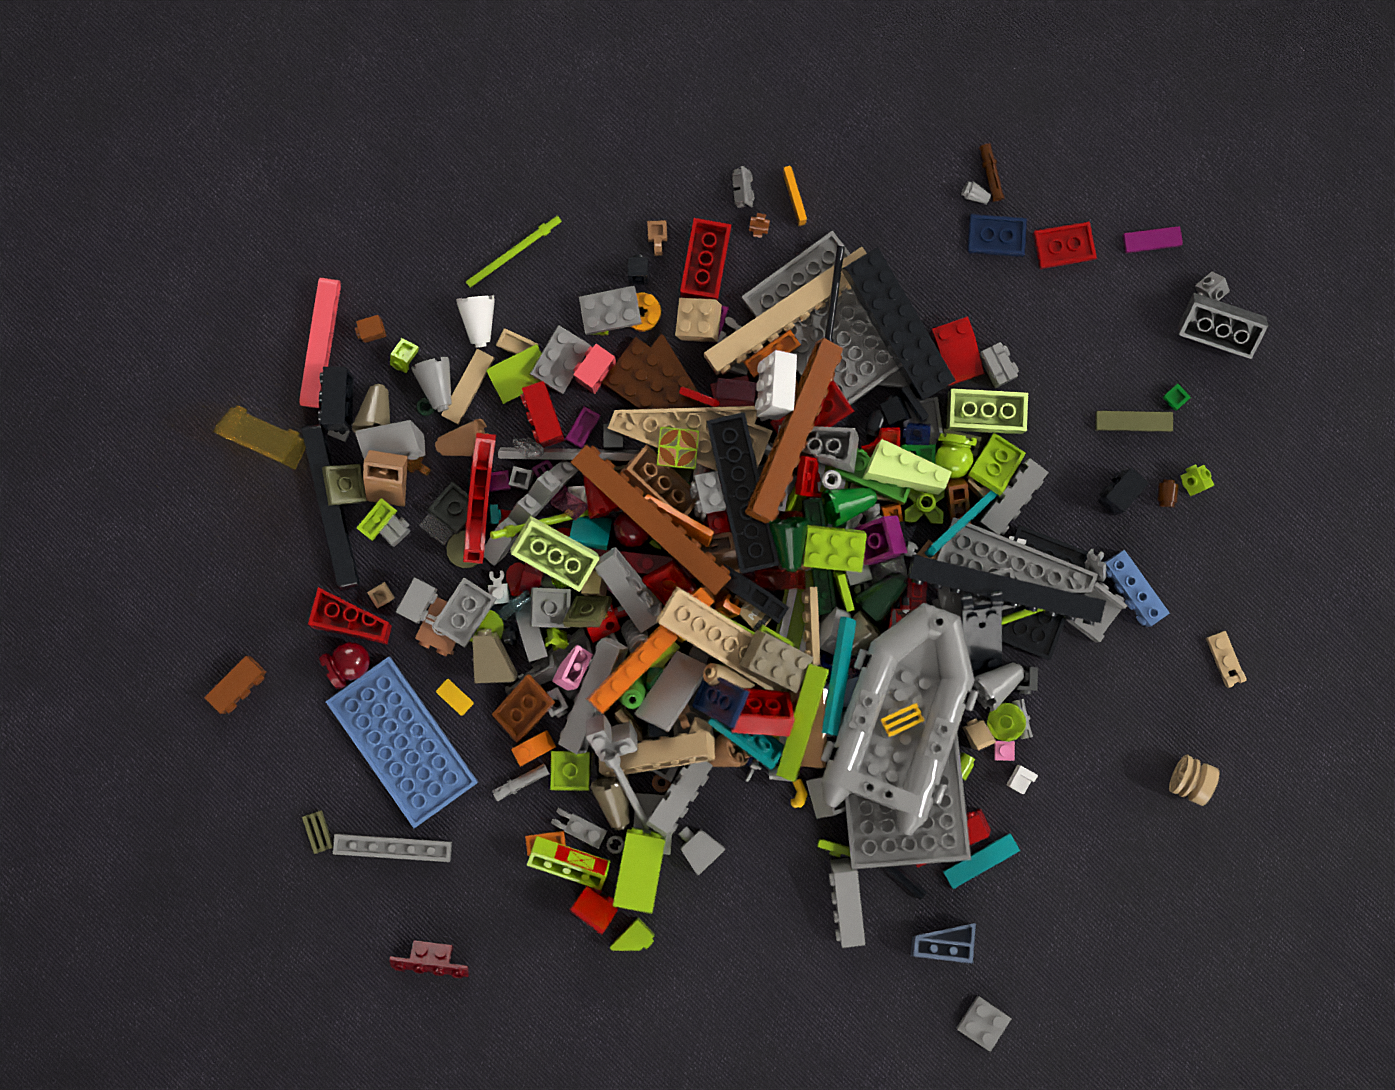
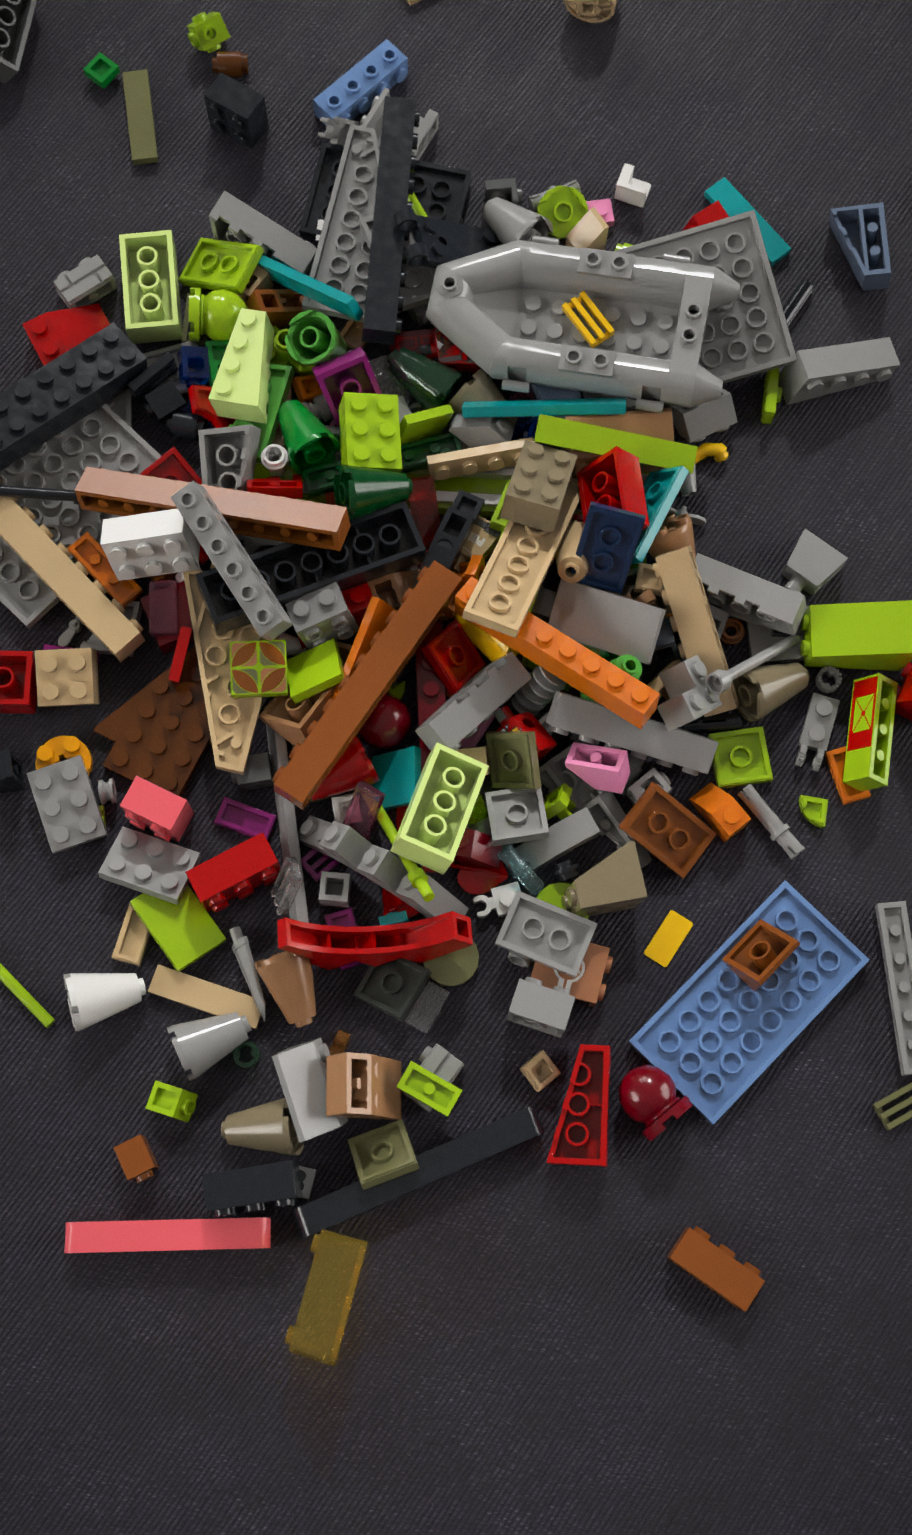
camera: 100 degrees left, 10 degrees down
(427, 753) = (760, 953): none -> dark orange slope
(491, 413) = (244, 957): none -> light grey bar
(525, 814) = (814, 809): none -> lime tile
(616, 338) = (107, 791): none -> light grey bush
(670, 486) = (314, 671): none -> lime tile
(745, 436) = (231, 561): none -> light grey brick
(918, 521) = (314, 338): none -> bright green cone

